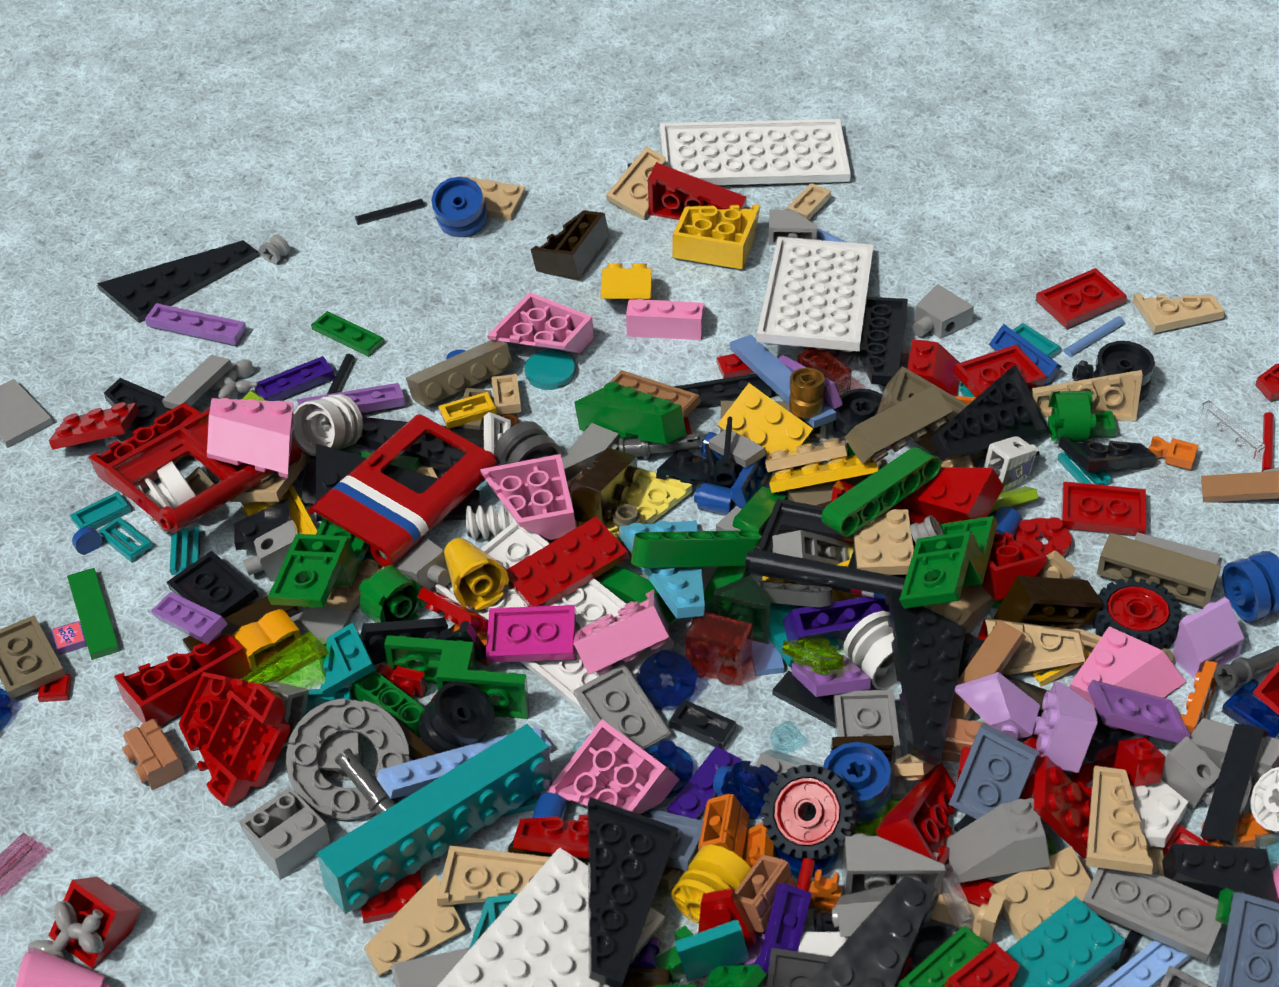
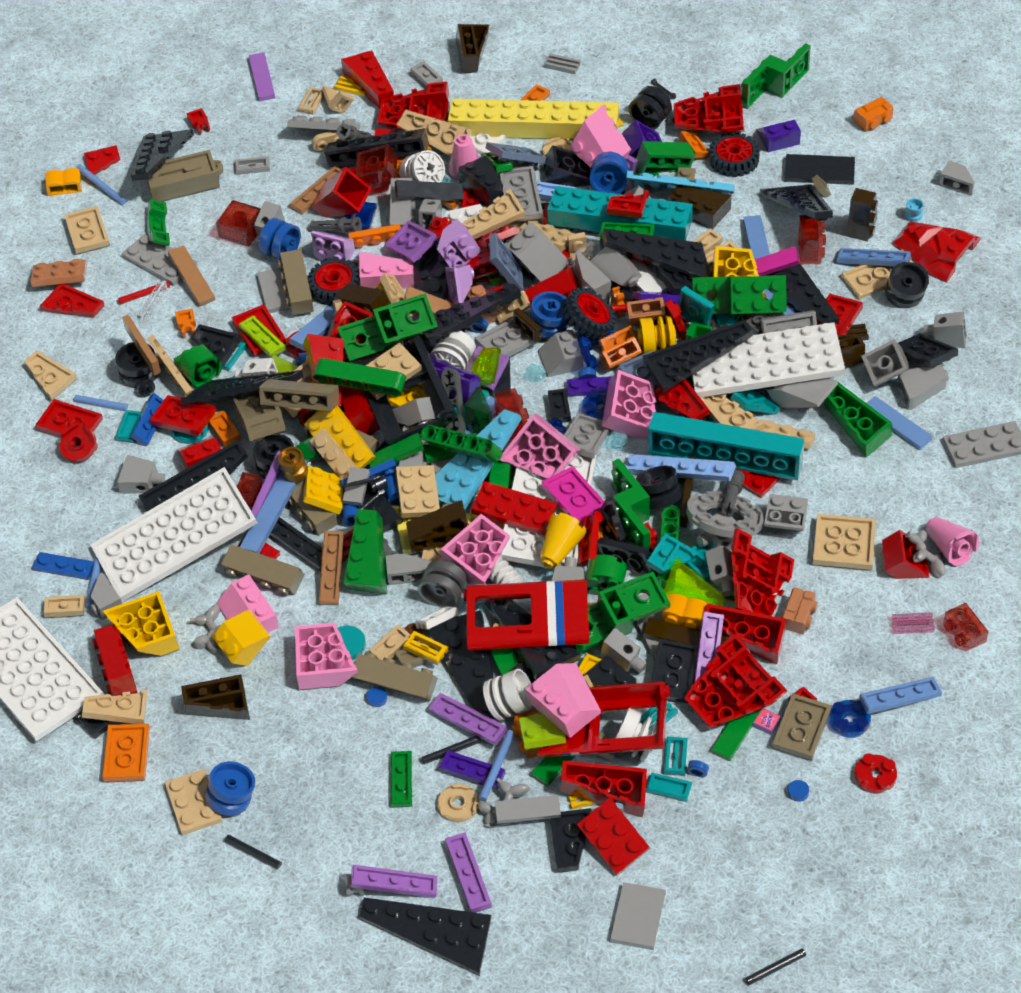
camera: 125 degrees left, 5 degrees up
(122, 619) = (732, 685): none -> red wedge
(190, 877) = (844, 541): none -> tan plate
(242, 267) = (393, 881): none -> medium lavender tile
(263, 379) = (496, 765): none -> medium blue bar
(269, 367) = (458, 813): none -> tan tile
(583, 176) = (126, 752): none -> orange plate
(663, 285) = (207, 641): none -> light grey piece
(683, 501) = (417, 490): none -> tan plate
(702, 344) = (262, 569): none -> dark tan brick
(867, 223) = (63, 566): none -> blue plate
(928, 528) = (366, 355): light grey wheel -> none
(1032, 283) = (68, 440): none -> red plate
(1044, 534) = (316, 326): none -> medium blue tile
(1080, 496) = (262, 336): none -> lime tile
(1132, 359) = (141, 344): none -> medium nougat tile

